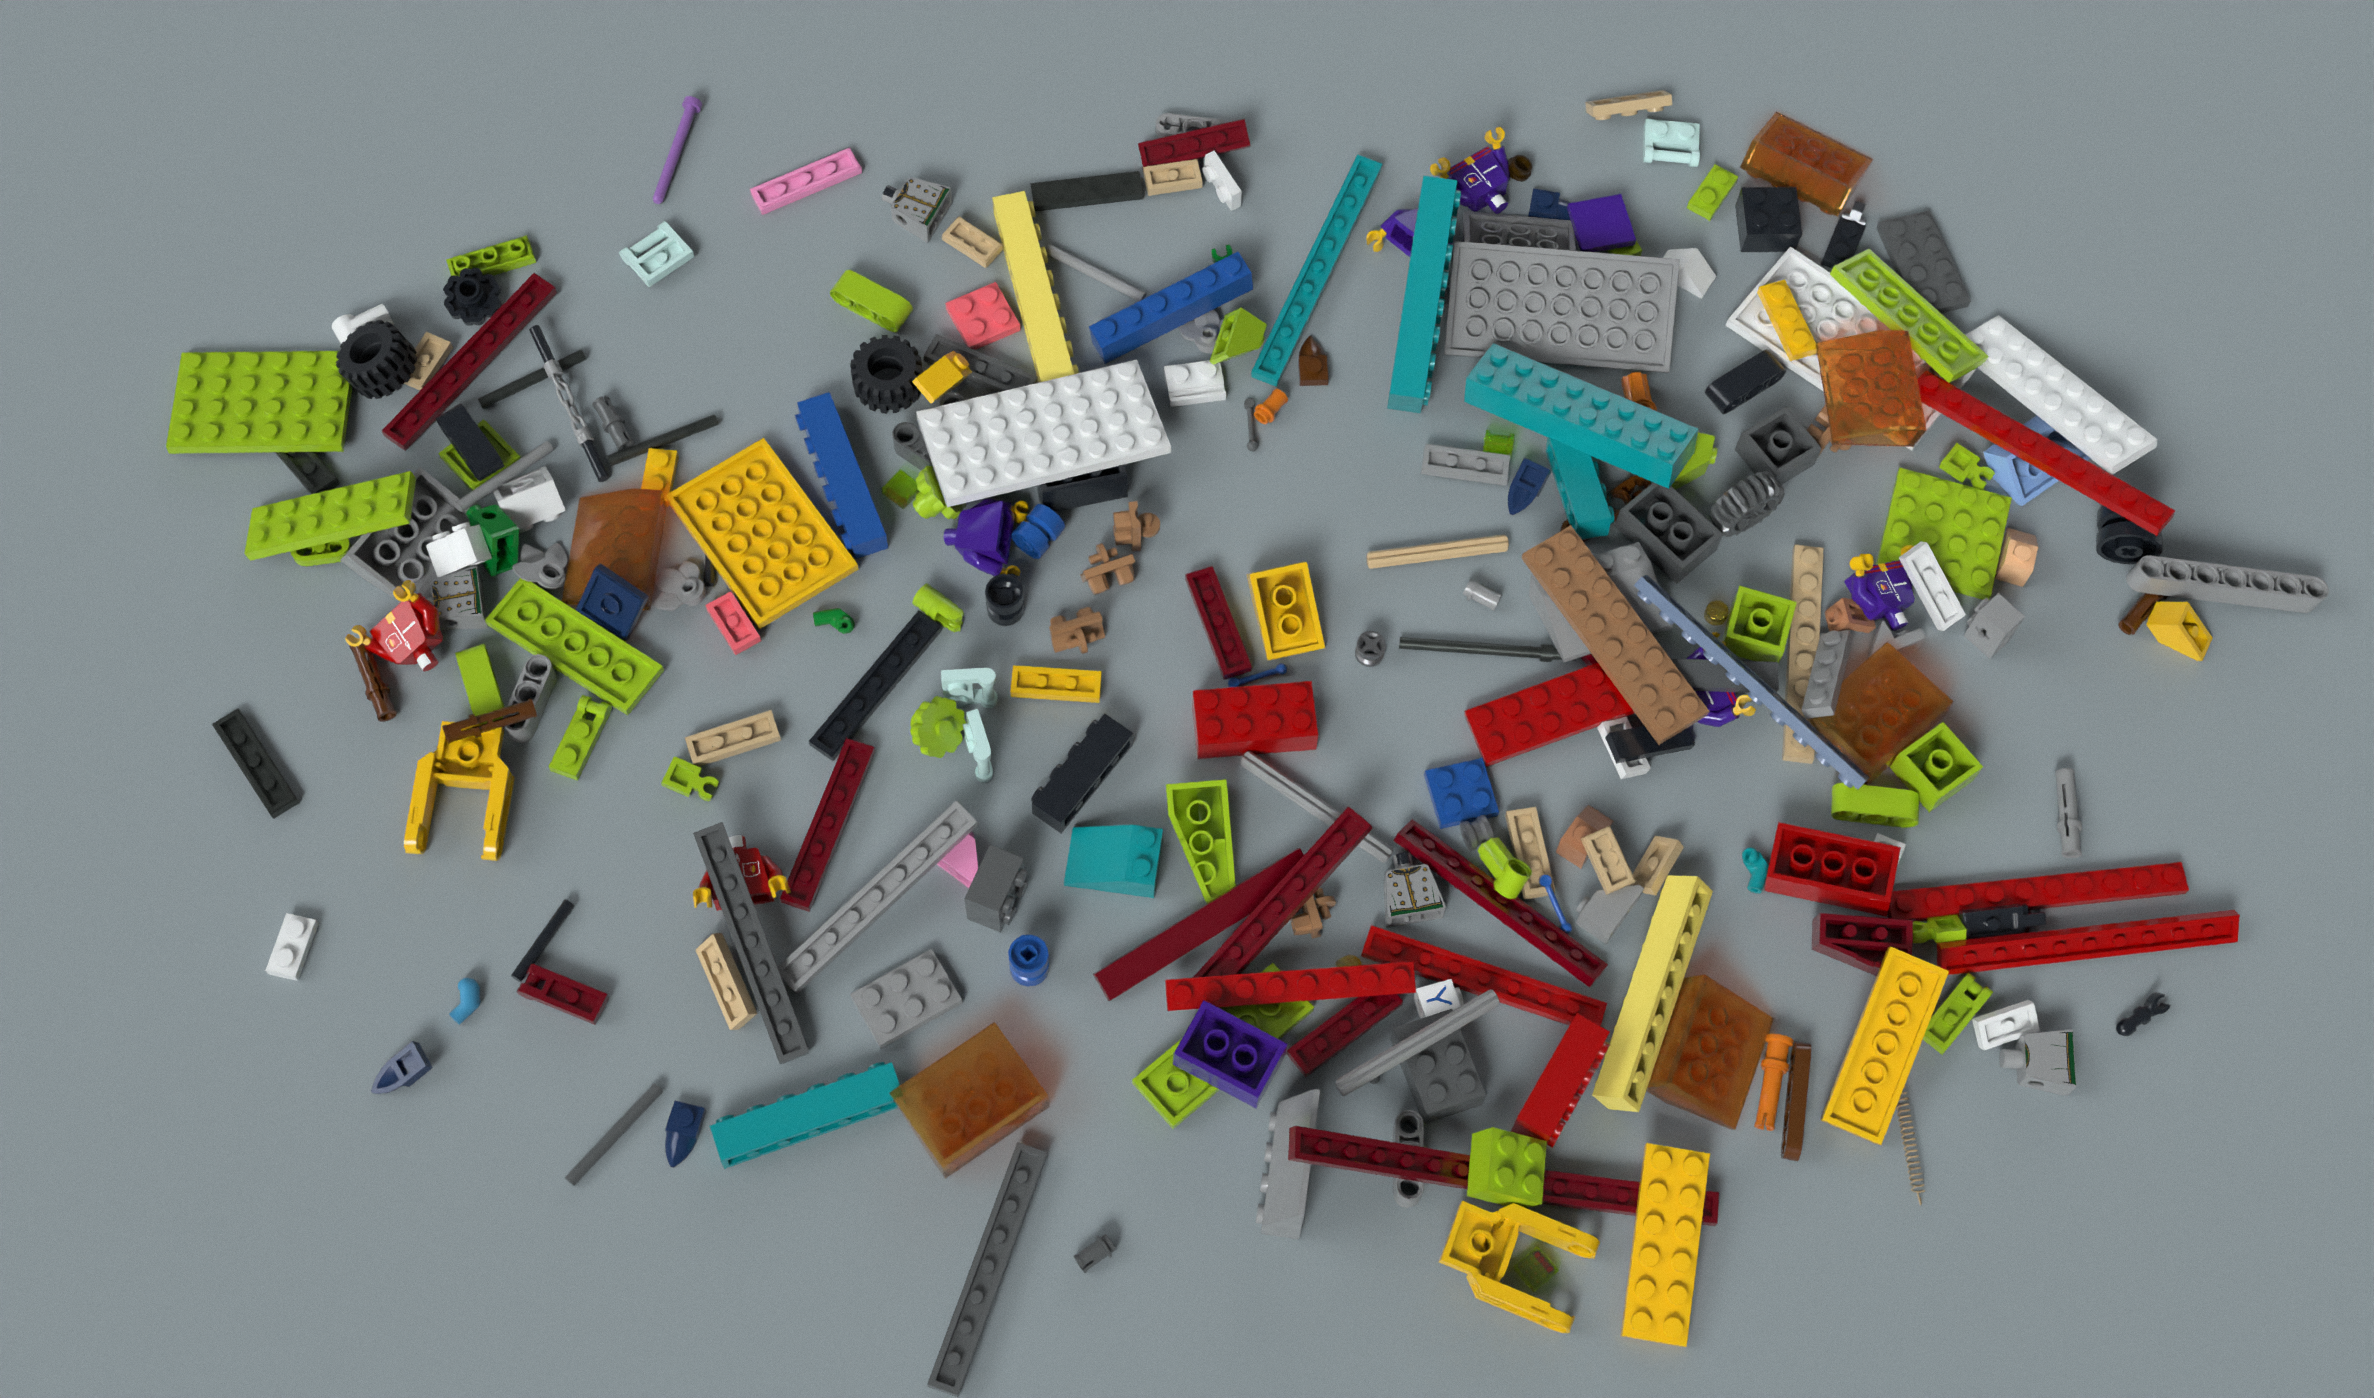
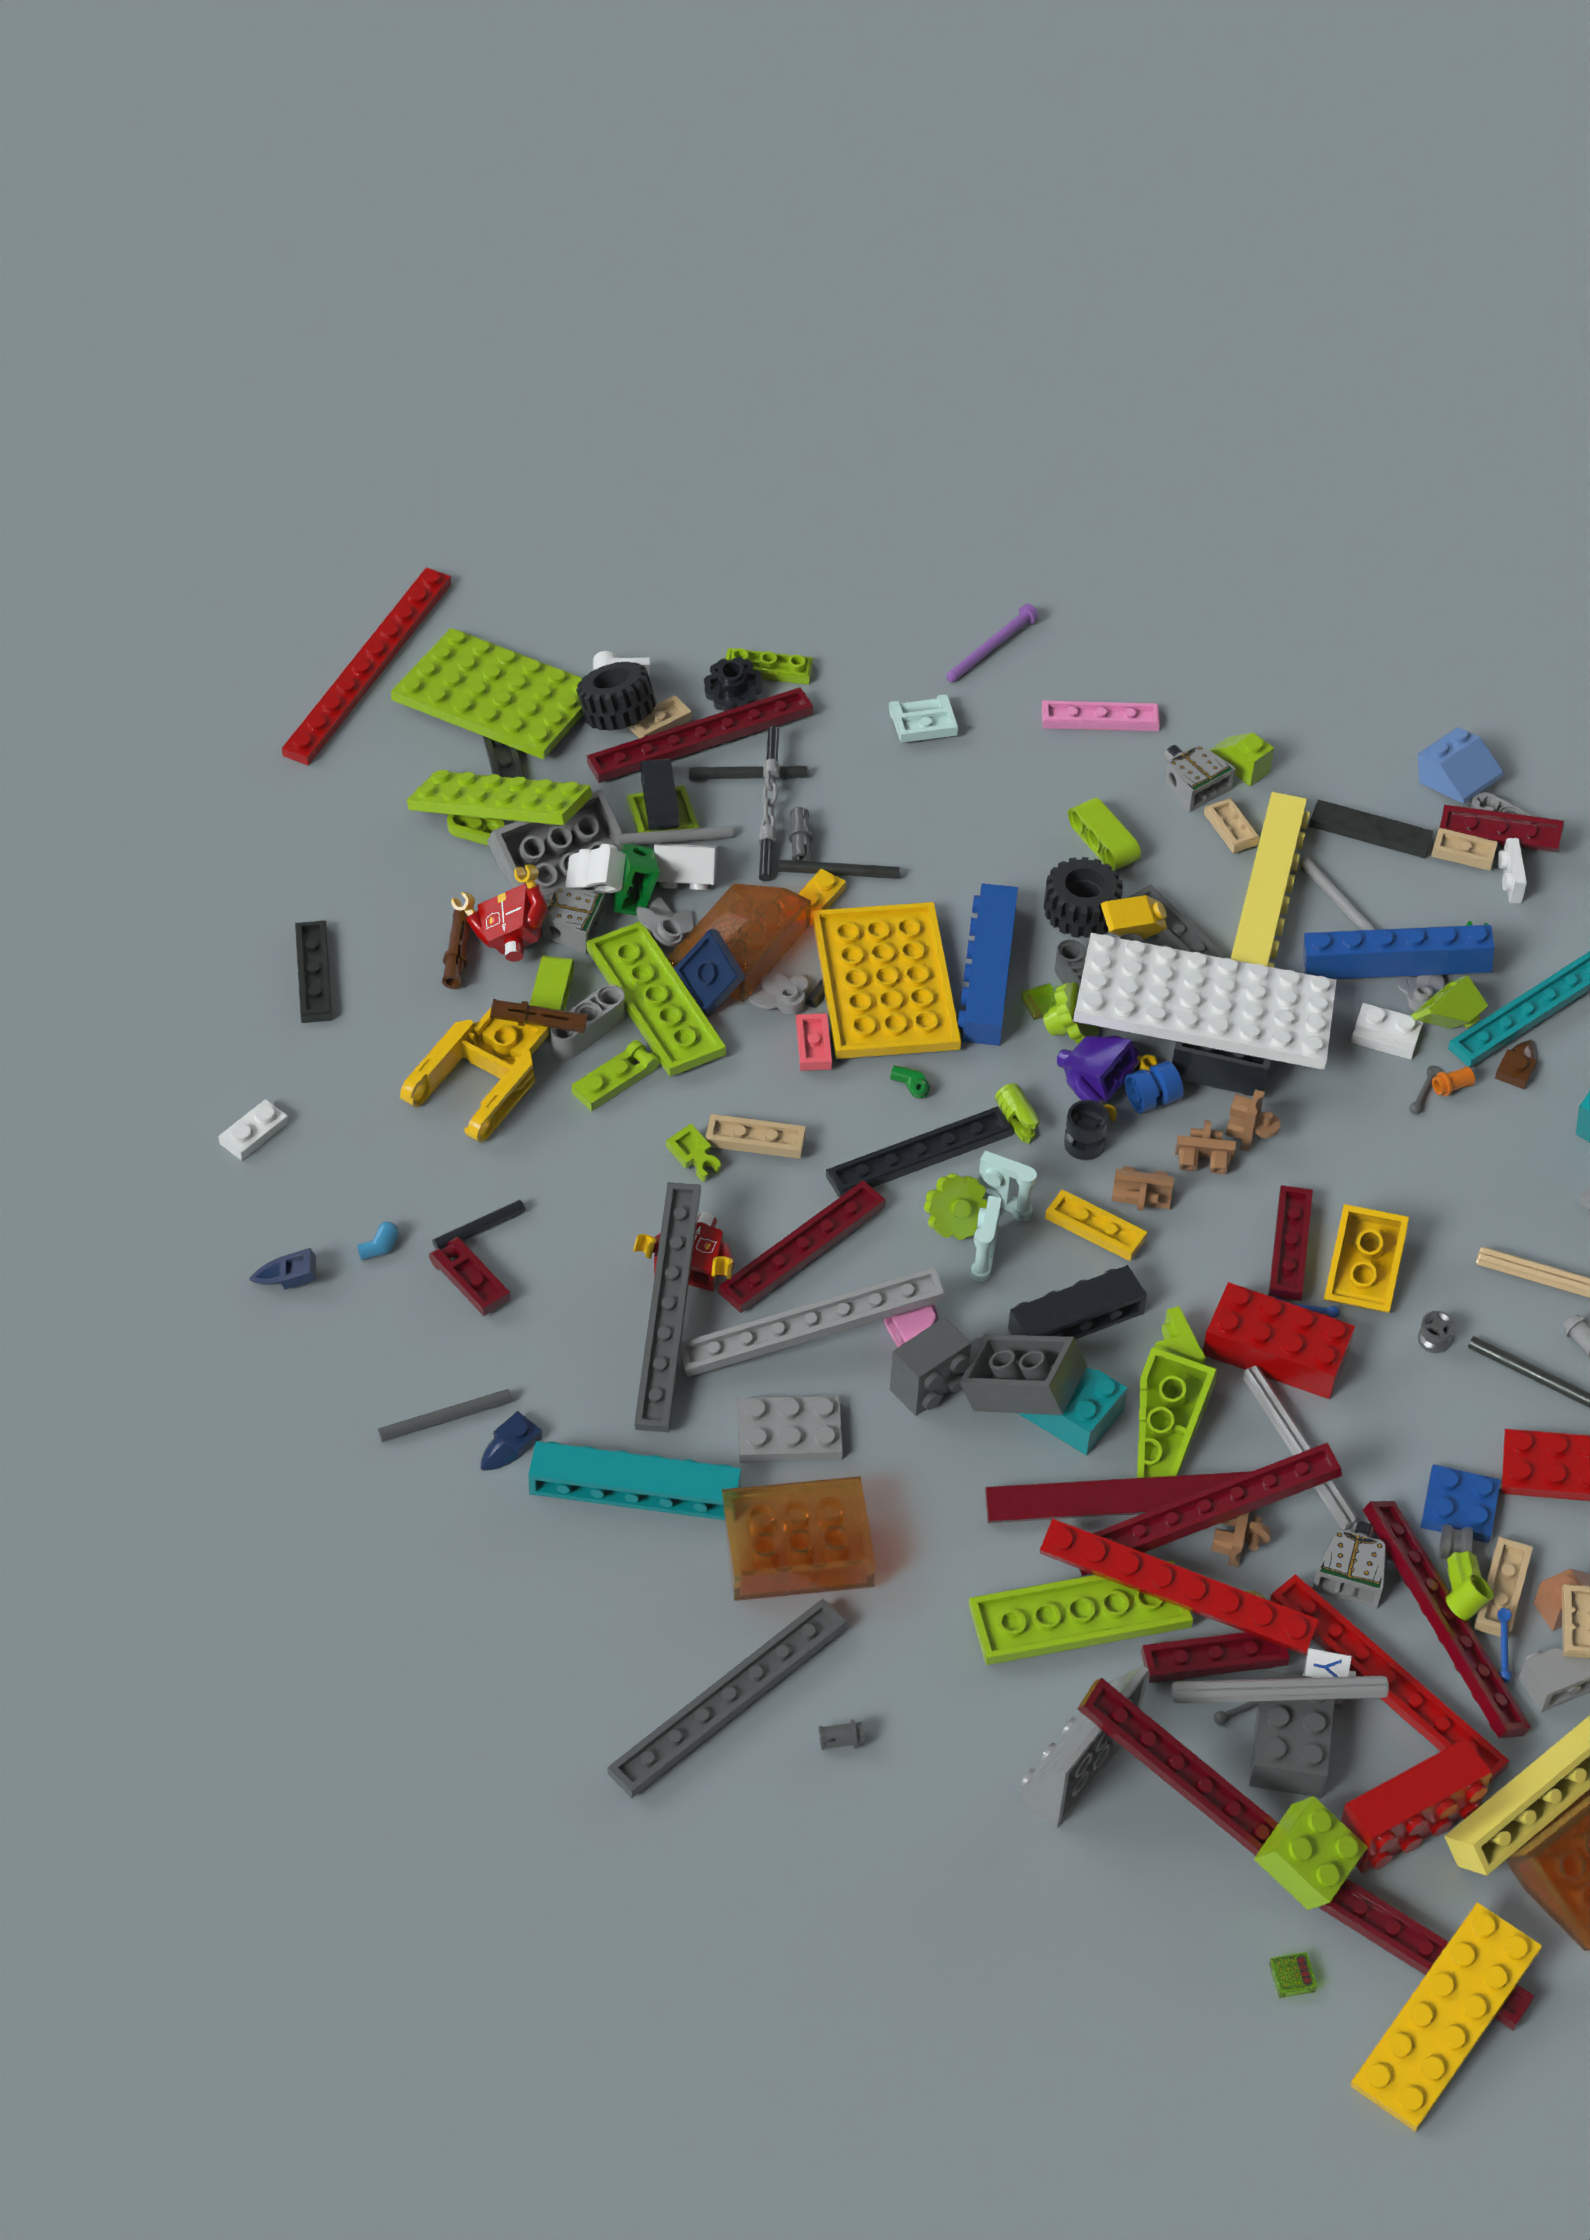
camera: 30 degrees right, 15 degrees down
(125, 427) = (366, 666): none -> red plate
(726, 981) = (626, 1333): tan plate -> none
(948, 167) = (1248, 755): none -> lime slope
(983, 316) = (1206, 891): coral plate -> none
(1028, 960) = (927, 1445): blue wheel -> none
(1075, 859) = (1023, 1374): none -> dark grey brick
(1131, 99) = (1458, 766): none -> medium blue slope
(1184, 765) = (1179, 1337): none -> lime slope
(1229, 1054) = (1079, 1613): dark purple brick -> none
(1414, 1139) = (1196, 1820): light grey beam -> none
(1482, 1247) = (1248, 1921): yellow plate -> none

